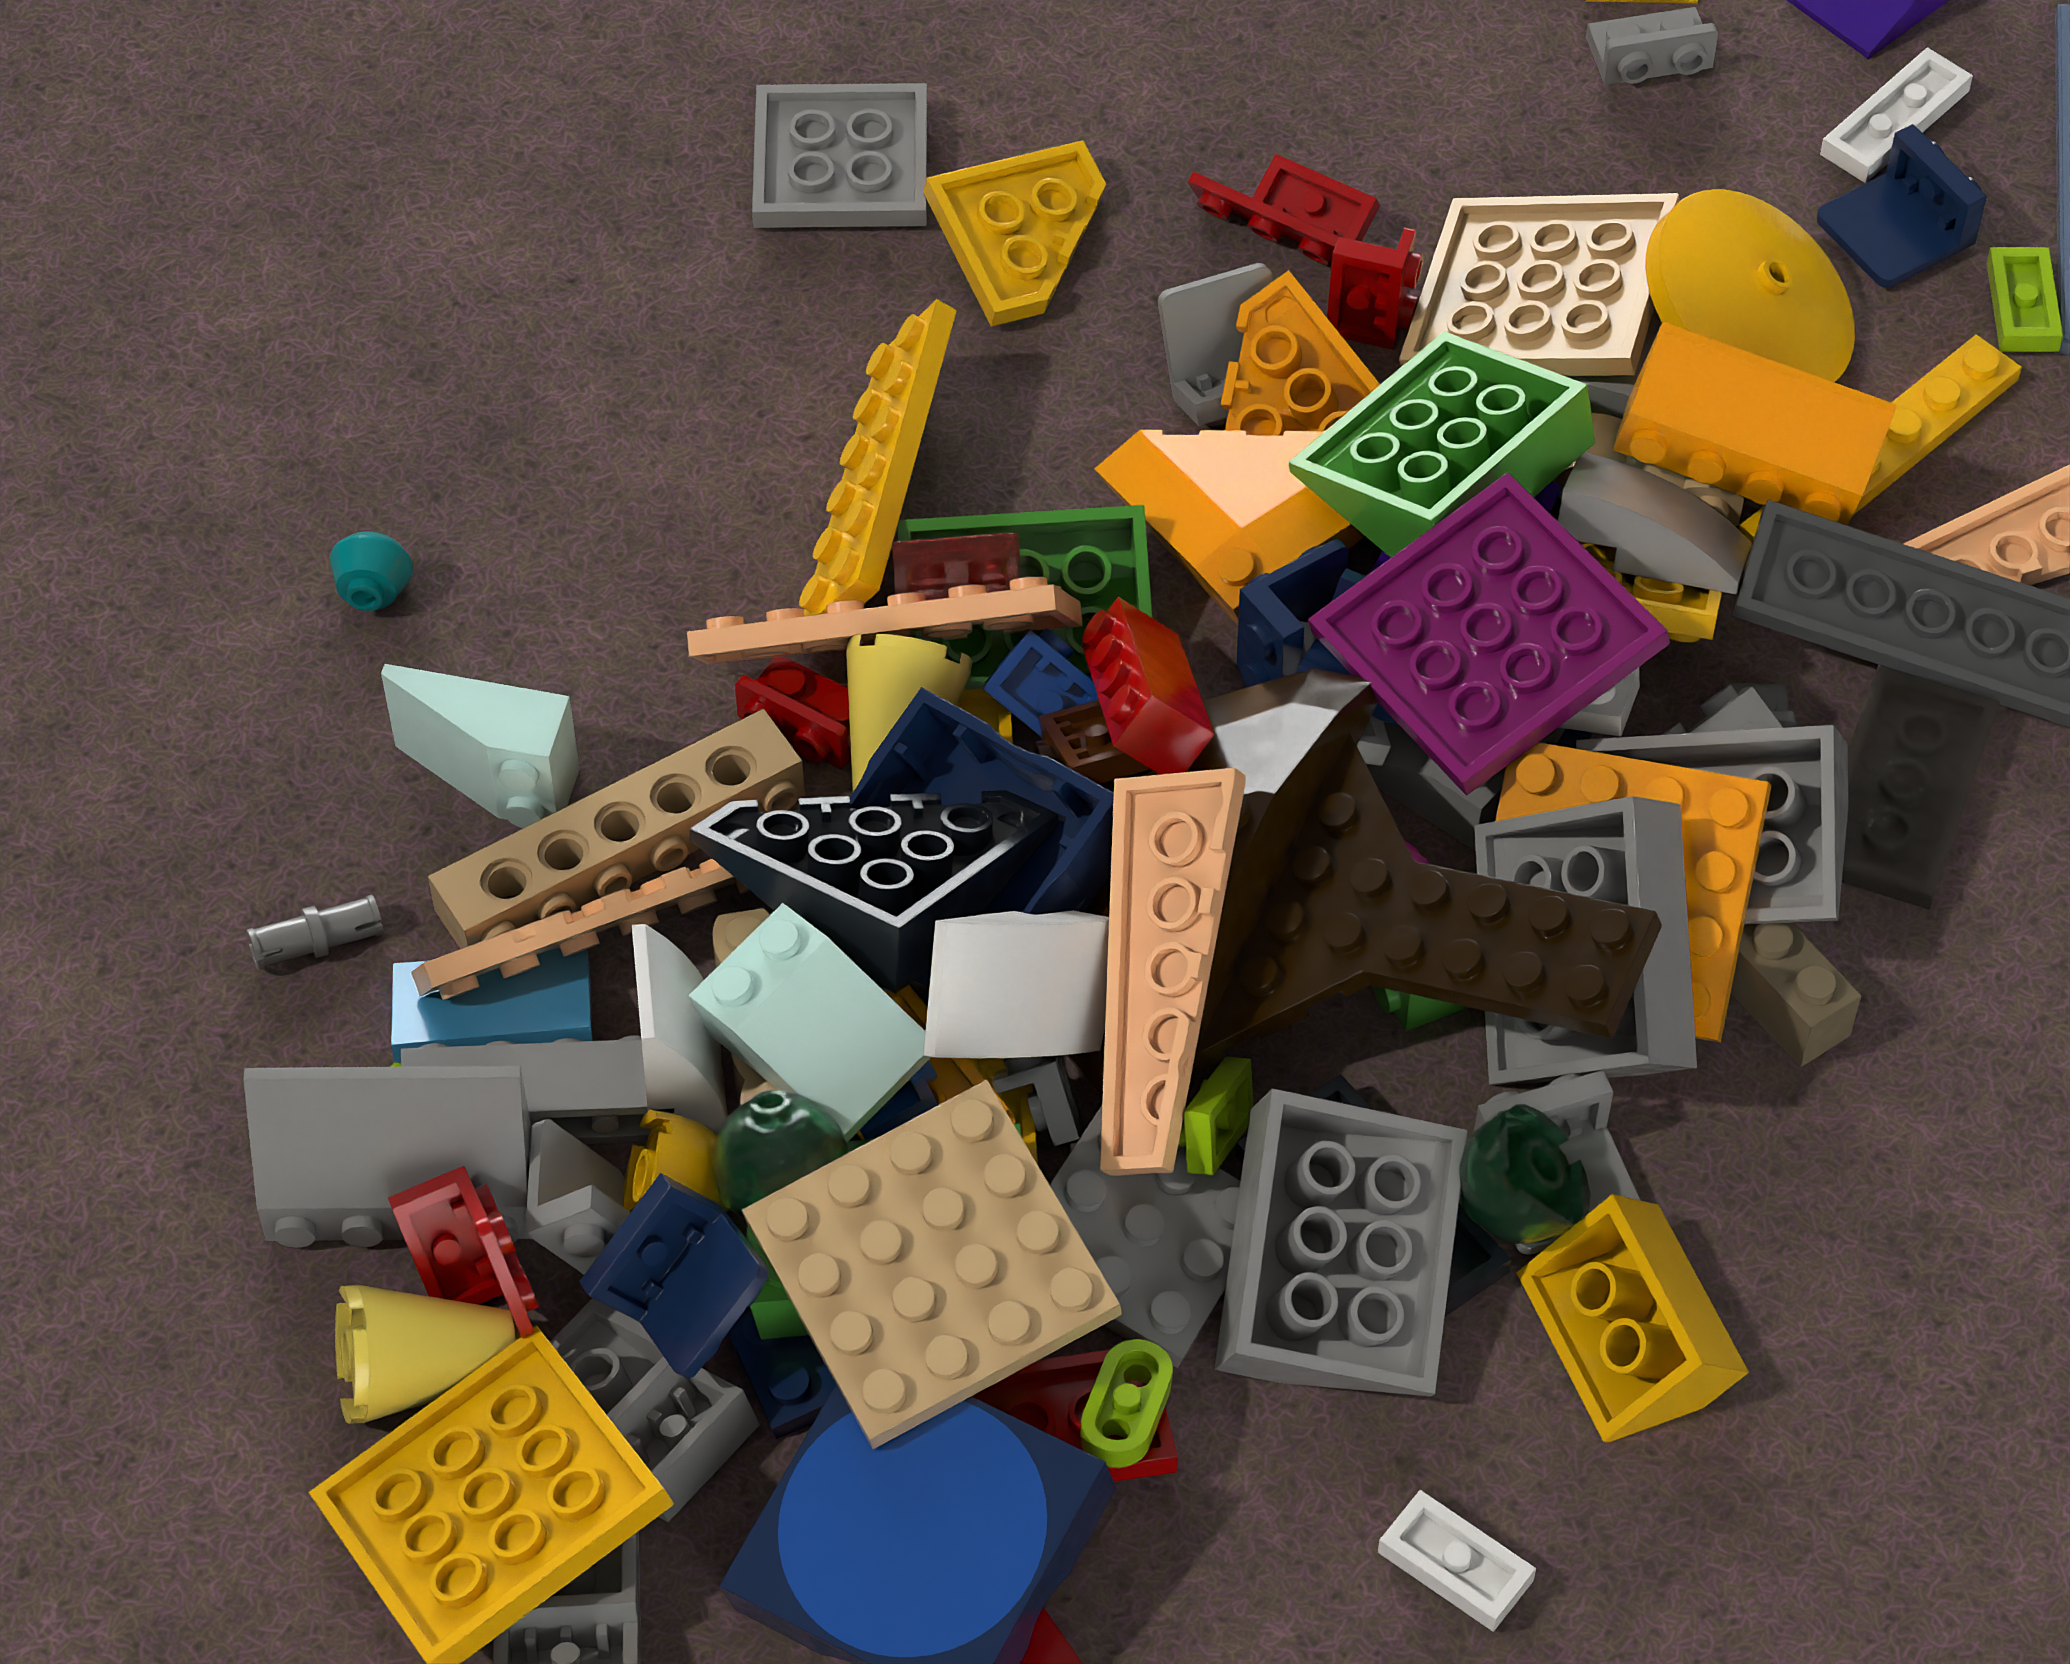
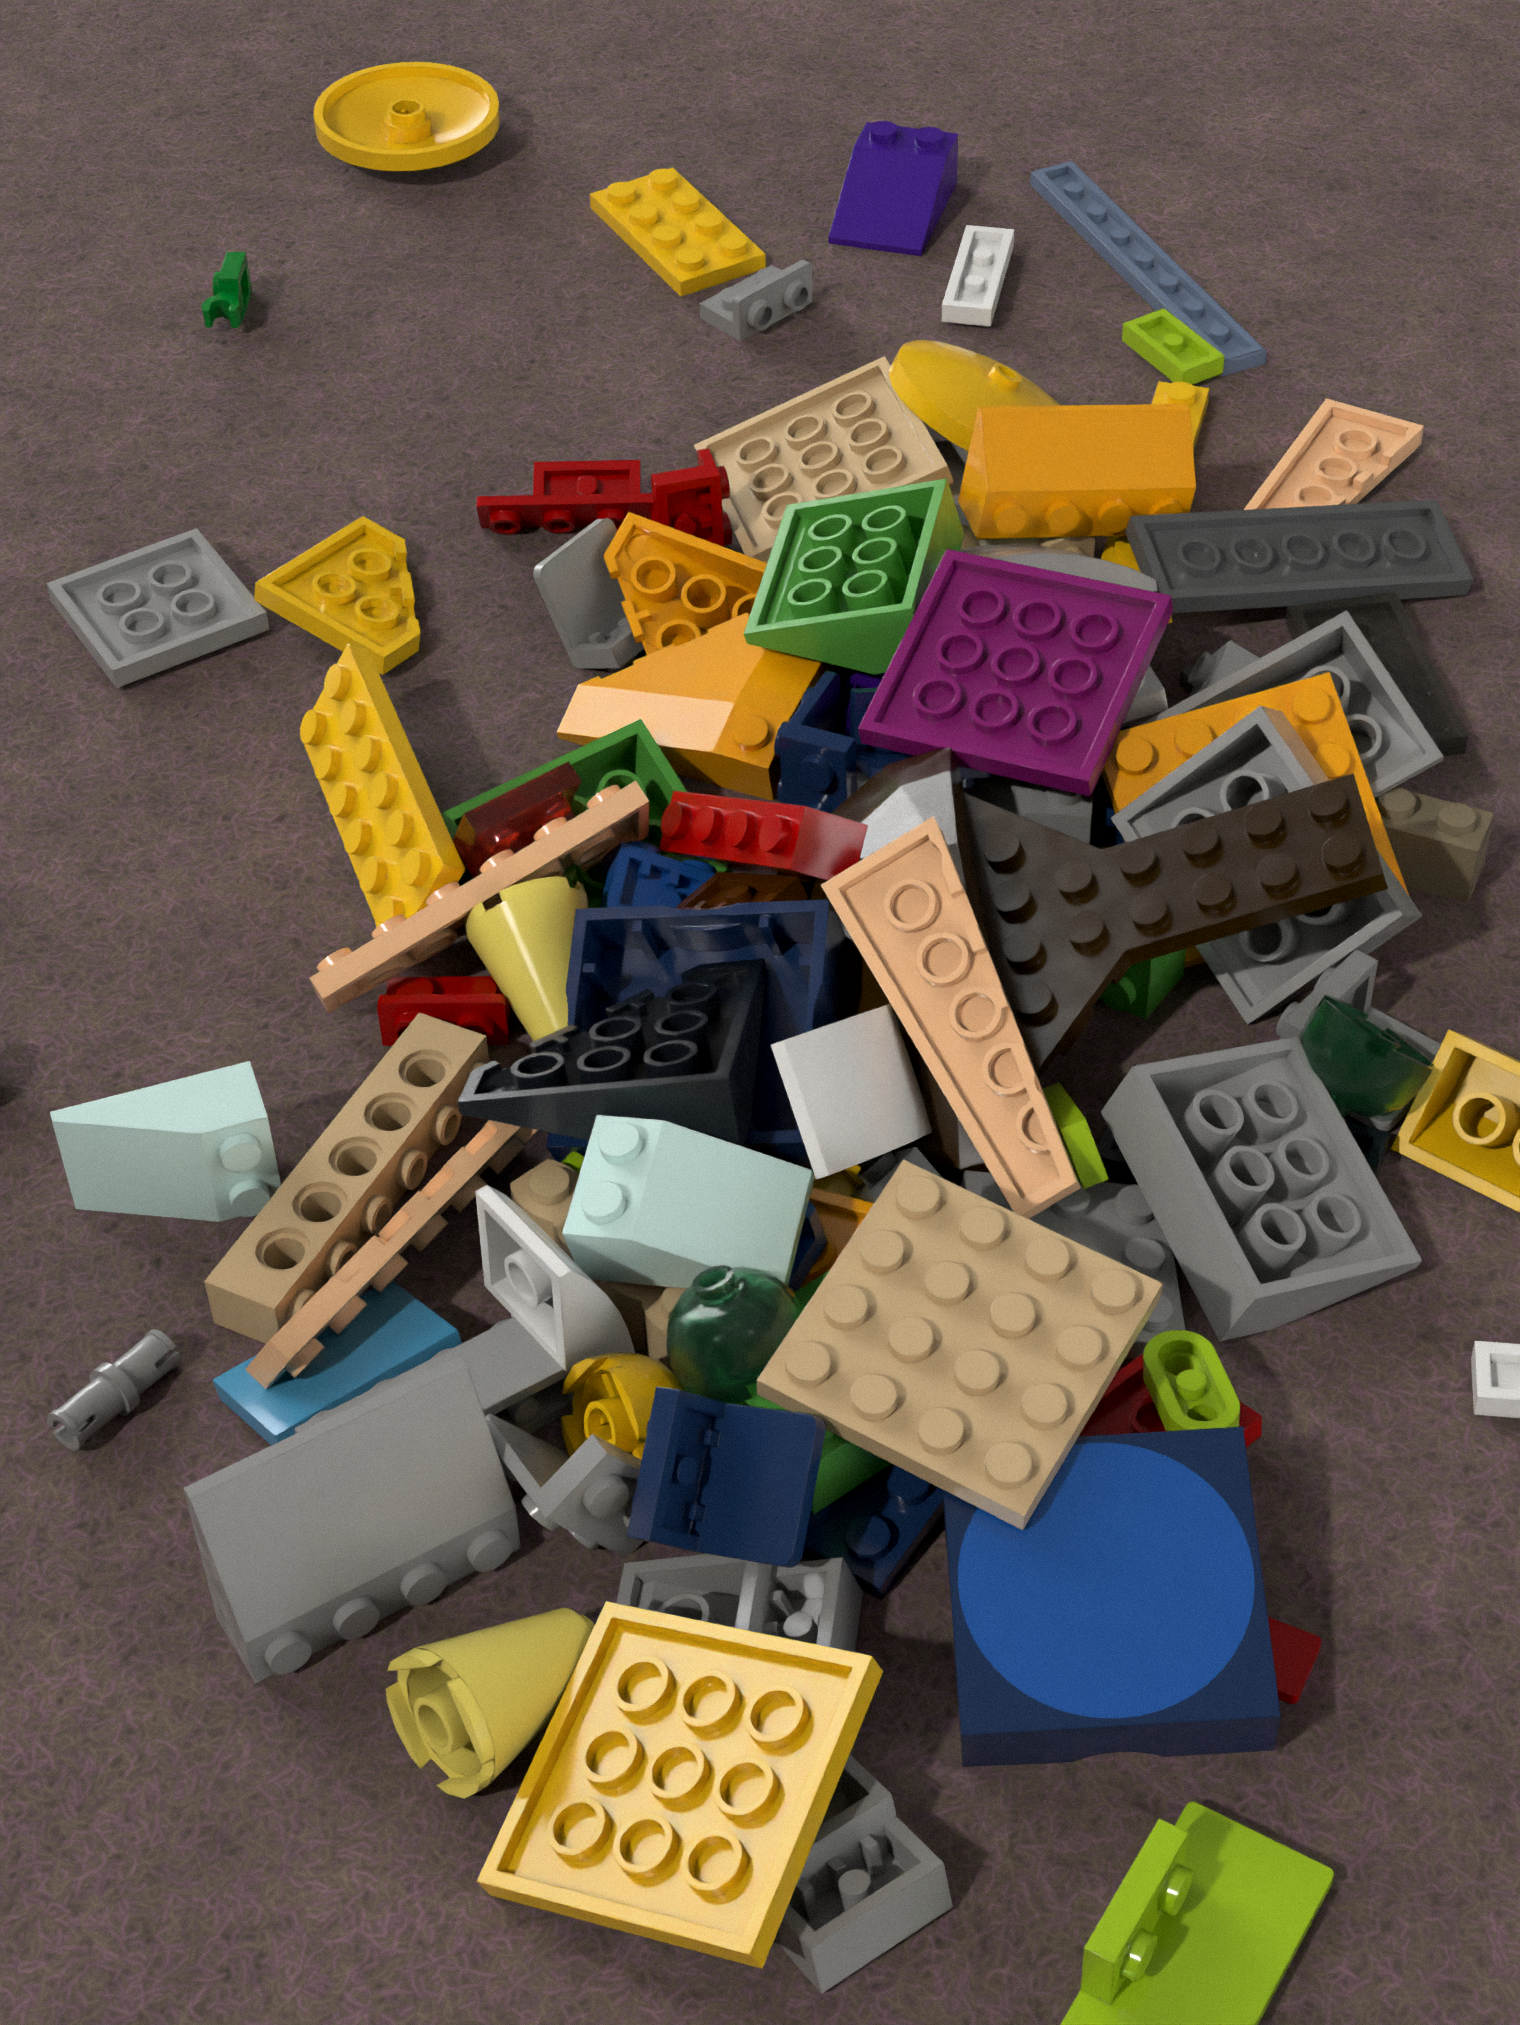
camera: 30 degrees left, 10 degrees down
(463, 1244) = (491, 1562): red bracket -> none
(1908, 215) = (1045, 321): dark blue bracket -> none

